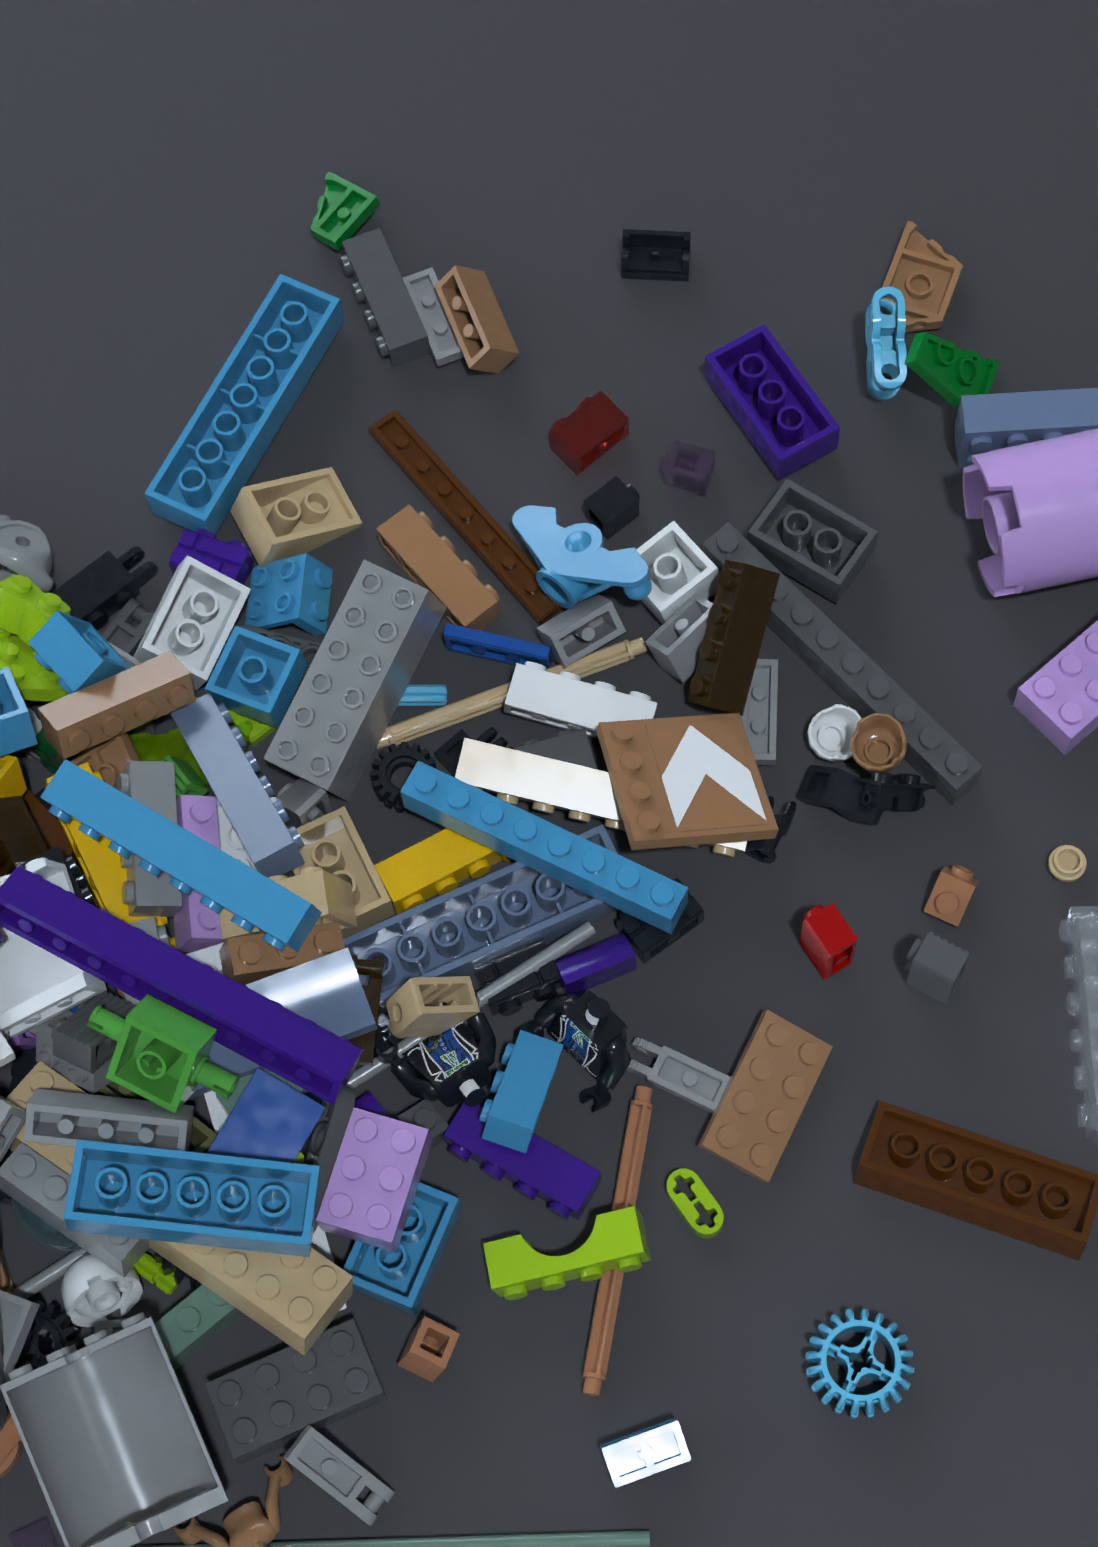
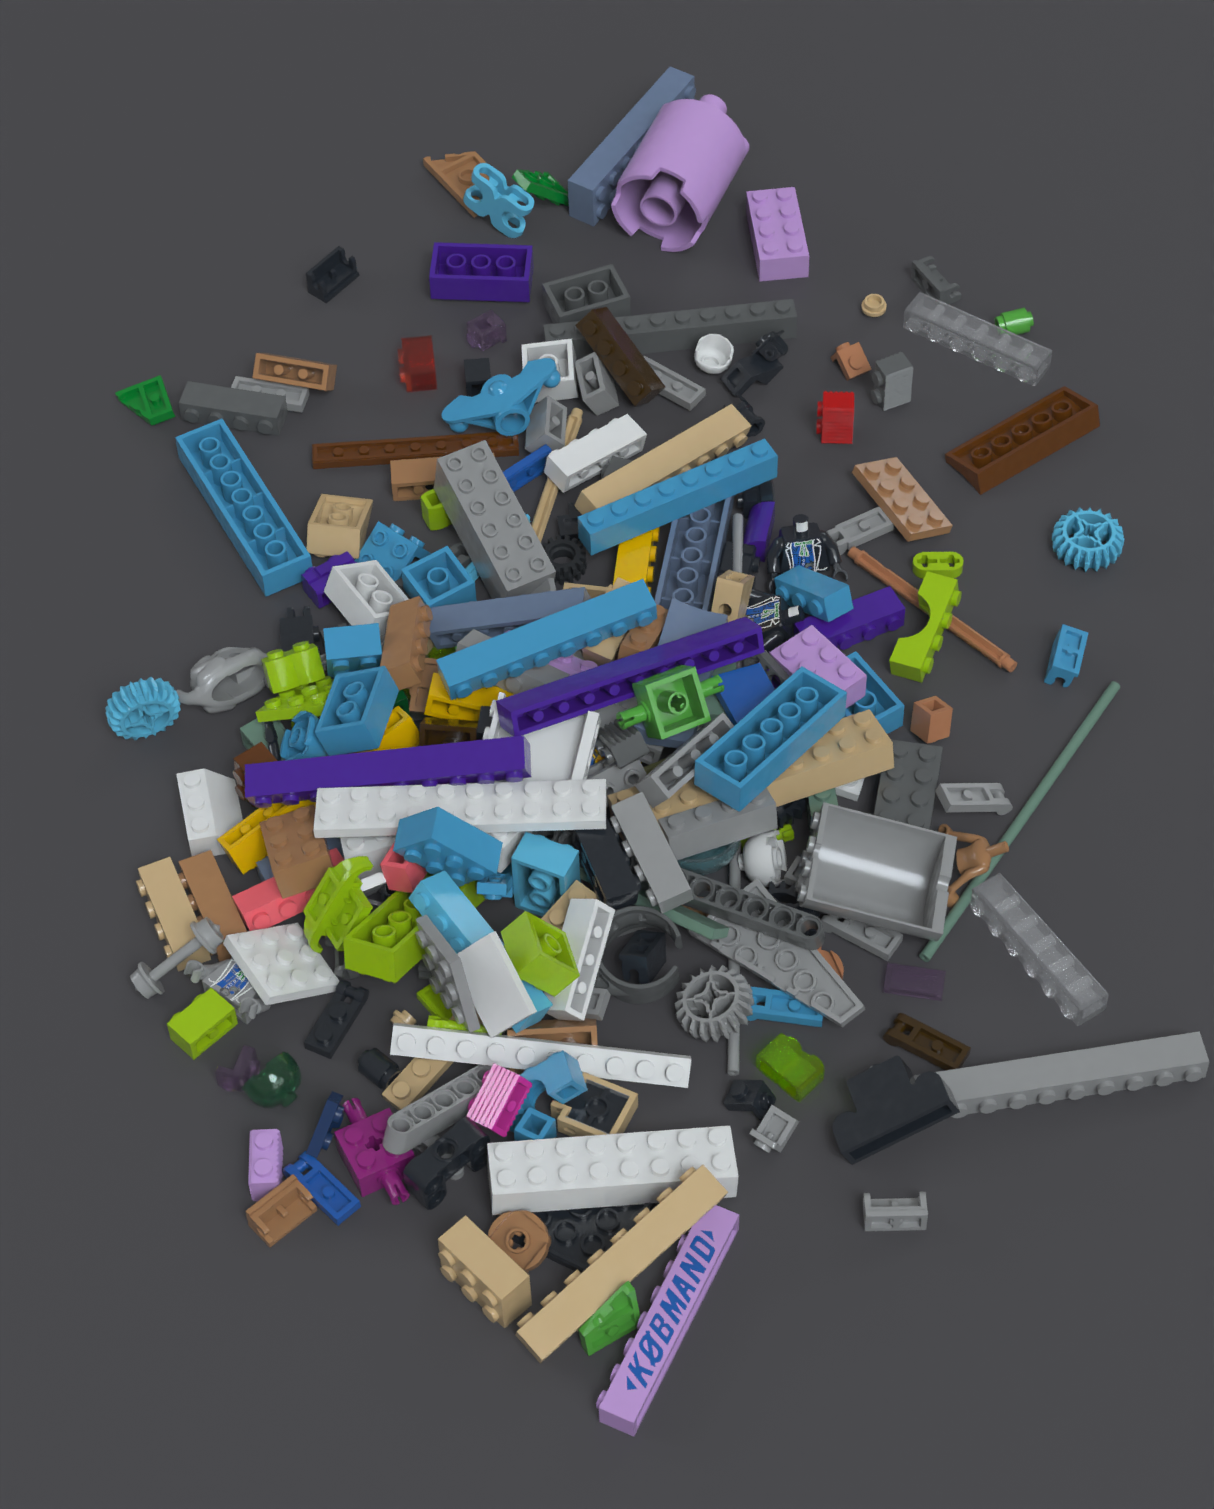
camera: 60 degrees left, 15 degrees down
(686, 781) = (691, 419): medium nougat plate -> none
(878, 743) = (741, 329): medium nougat hair -> none

